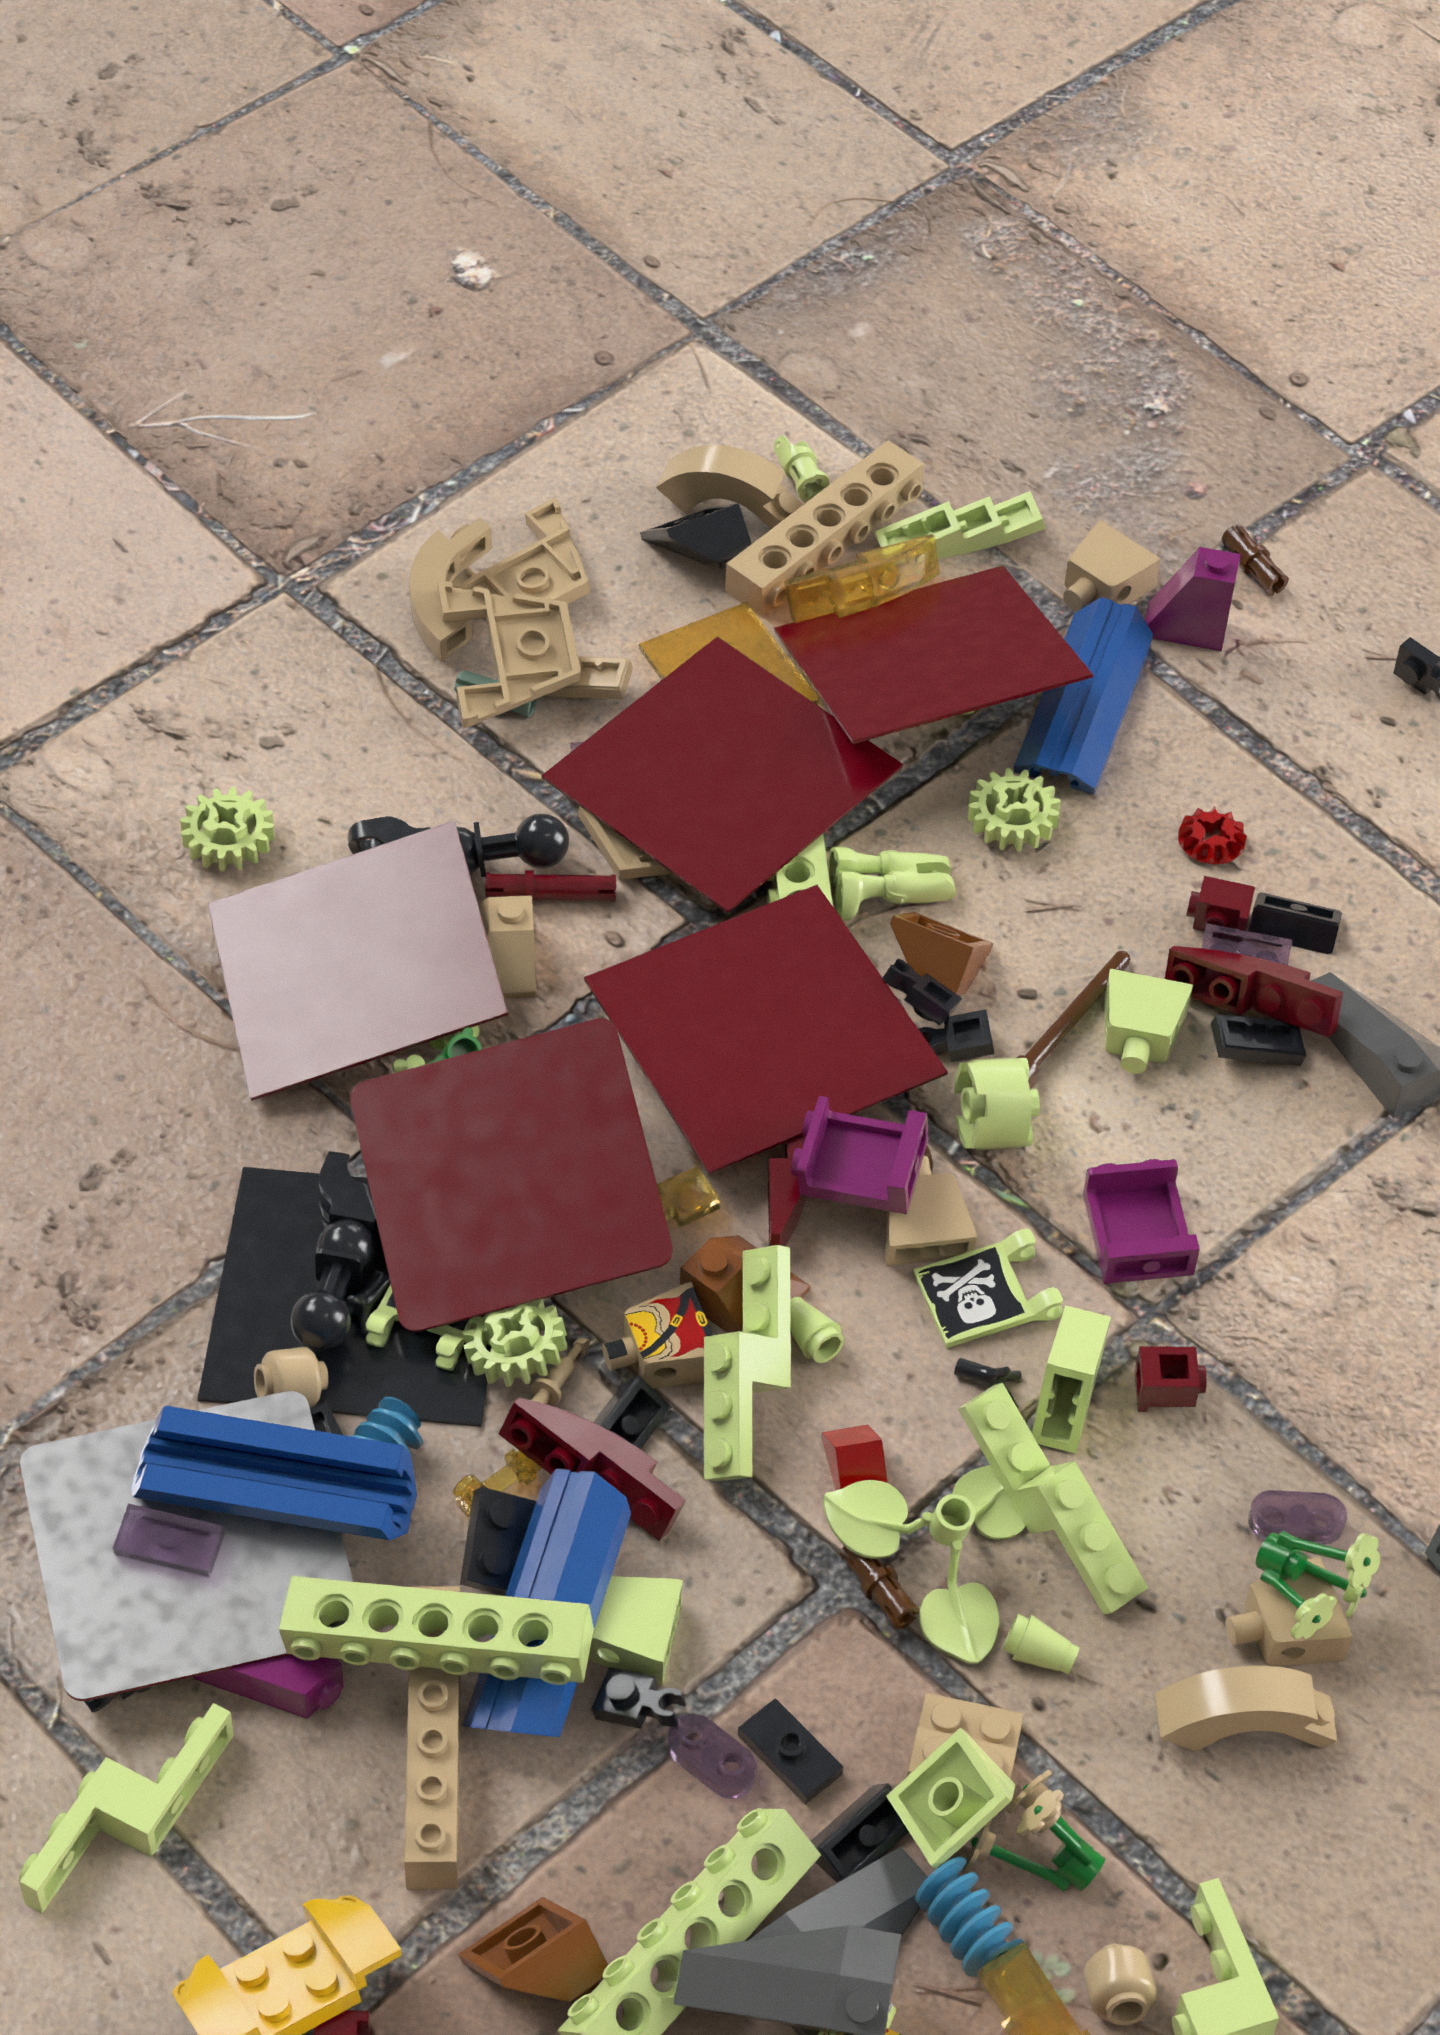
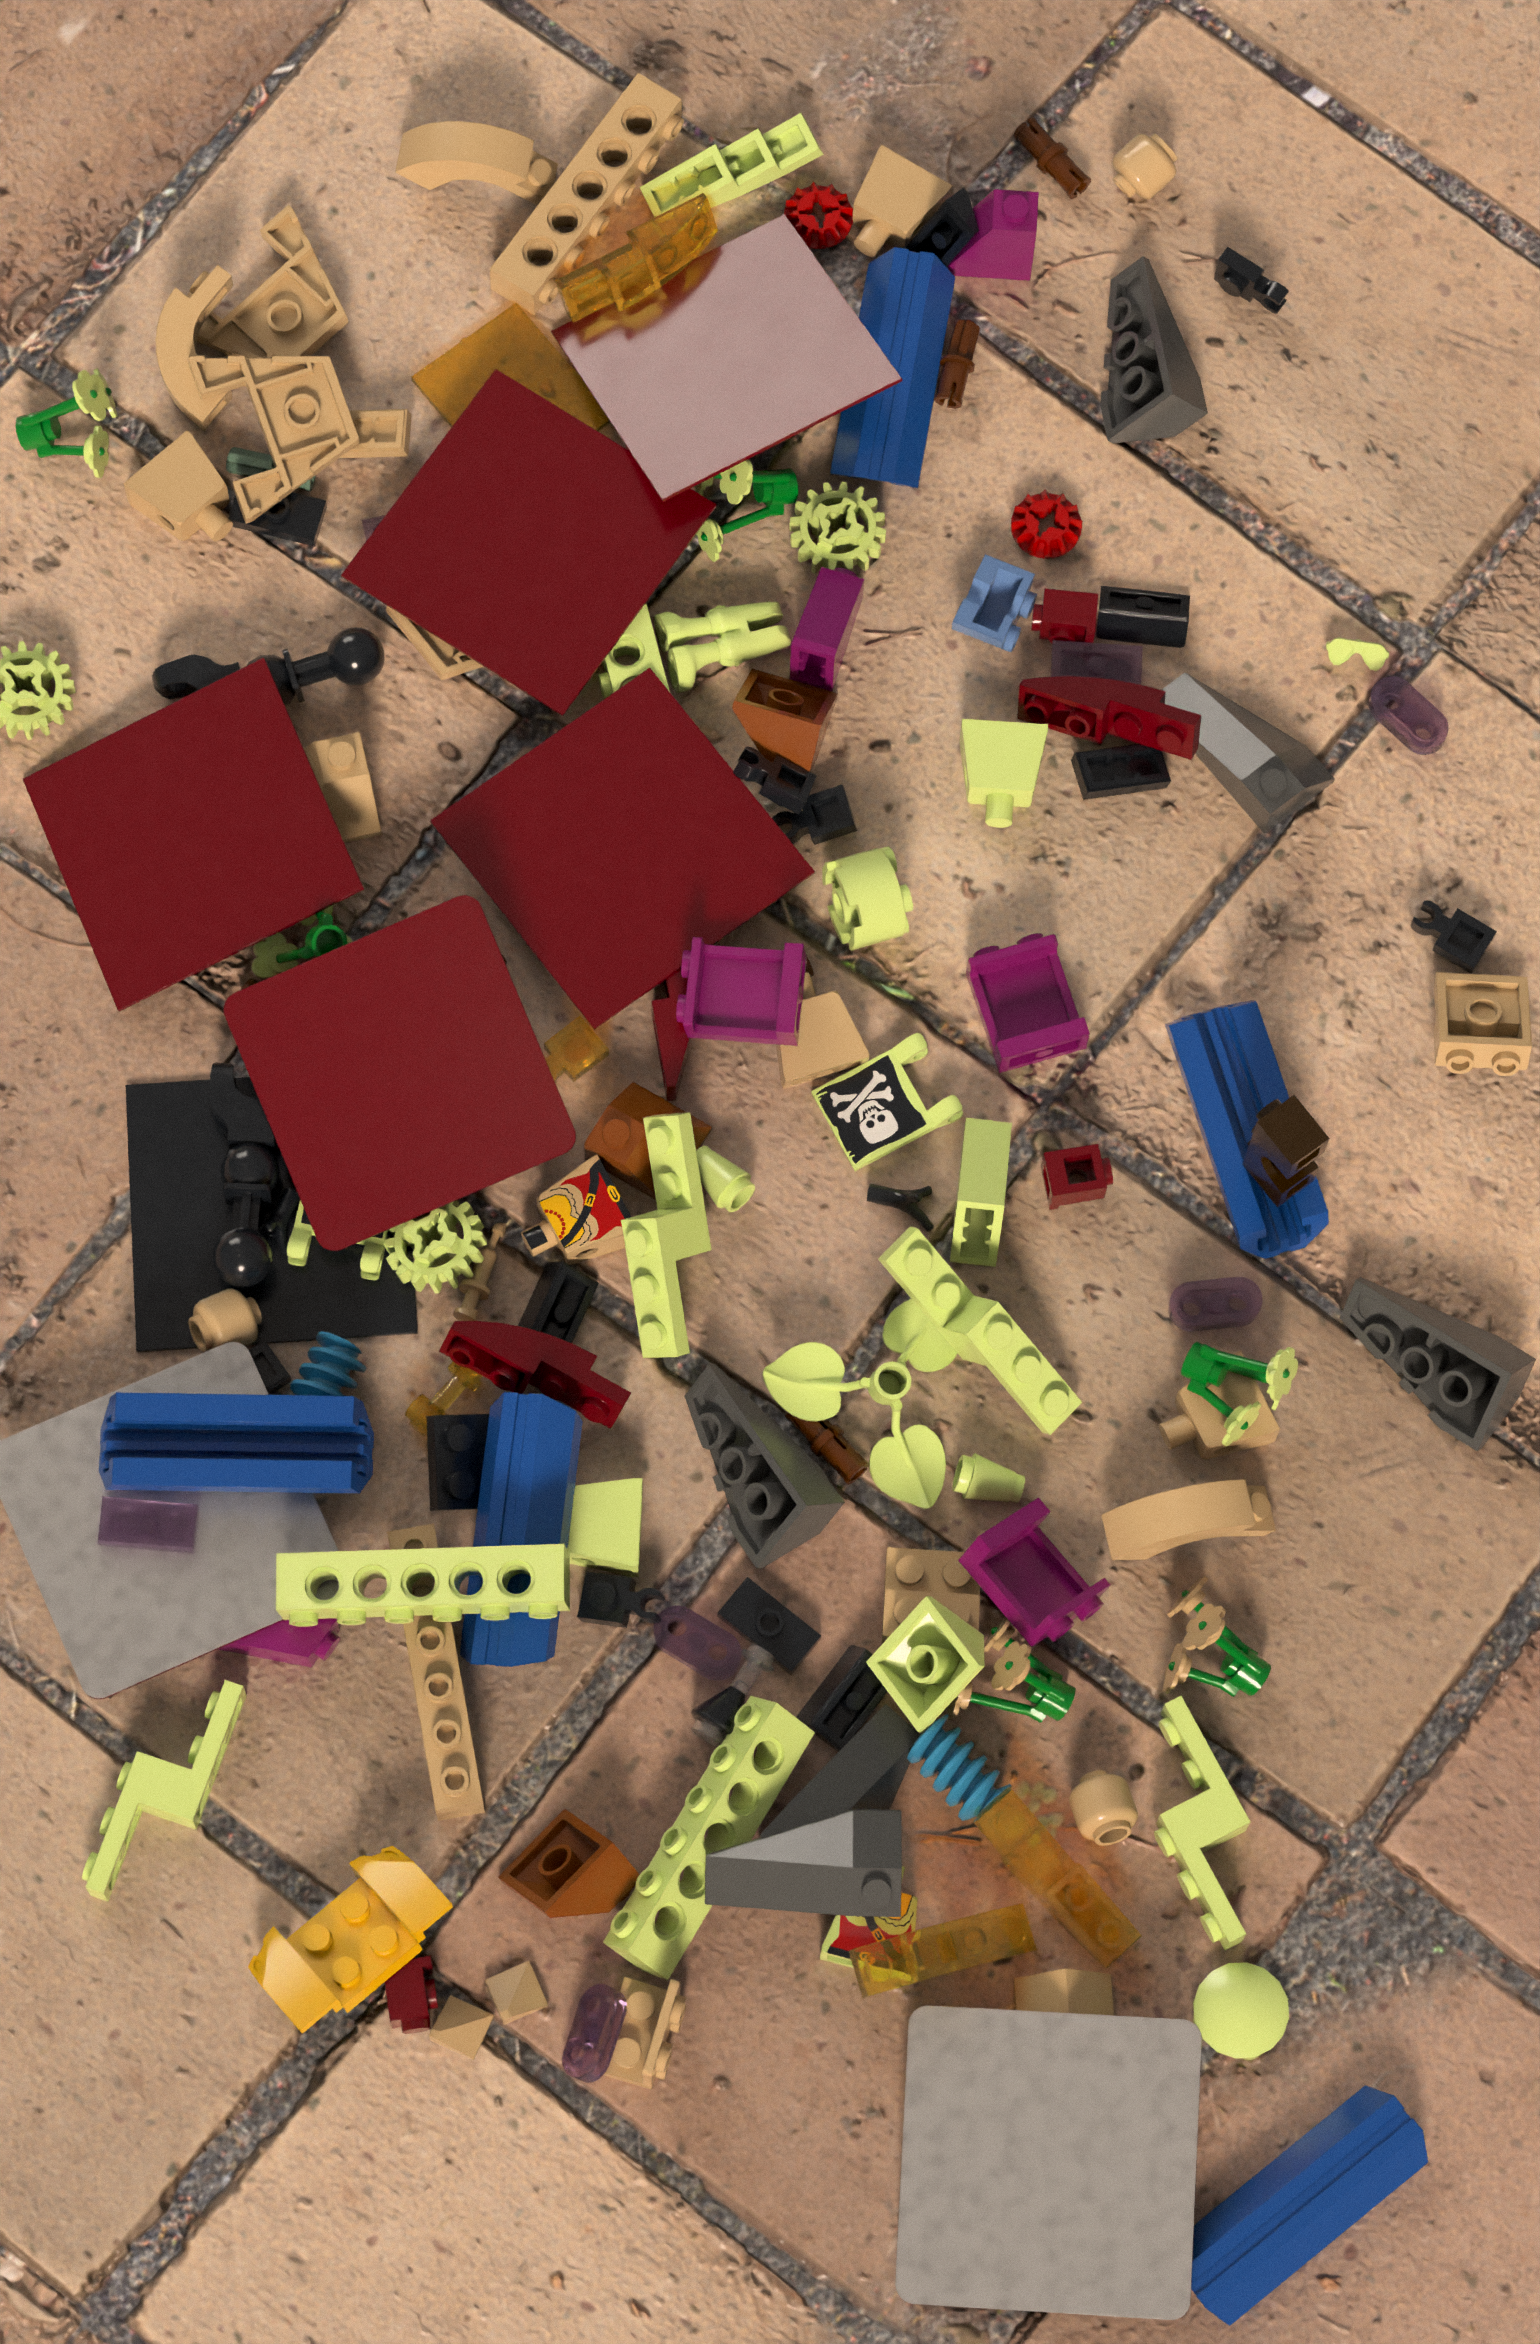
camera: 10 degrees left, 20 degrees up
(291, 632) = (42, 427): none -> plant
(408, 696) = (181, 491): none -> tan torso
(503, 733) = (292, 519): none -> black plate
(552, 886) = (365, 706): dark red pin -> none
(704, 536) = (456, 225): black slope -> none
(719, 1824) = (717, 1714): none -> piece
(800, 464) = (547, 112): yellowish green piece -> none
(810, 1607) = (769, 1481): none -> dark grey wedge
(854, 1455) = (784, 1312): red slope -> none
(957, 767) = (769, 486): none -> plant
(989, 883) = (826, 628): none -> magenta slope
(1050, 570) = (835, 224): none -> red gear
(1070, 1737) = (1031, 1576): none -> magenta panel
(1072, 1015) = (926, 774): reddish brown piece -> none
(1145, 699) = (957, 363): none -> reddish brown axle
(1152, 585) = (947, 229): none -> black slope
(1155, 887) = (996, 603): none -> medium blue cylinder
(1286, 1865) = (1242, 1666): none -> plant
(1326, 727) = (1151, 373): none -> dark grey wedge
(1339, 573) = (1144, 166): none -> tan head
(1352, 1366) = (1229, 1080): none -> blue piece
(1387, 1345) = (1284, 1149): none -> dark brown arch

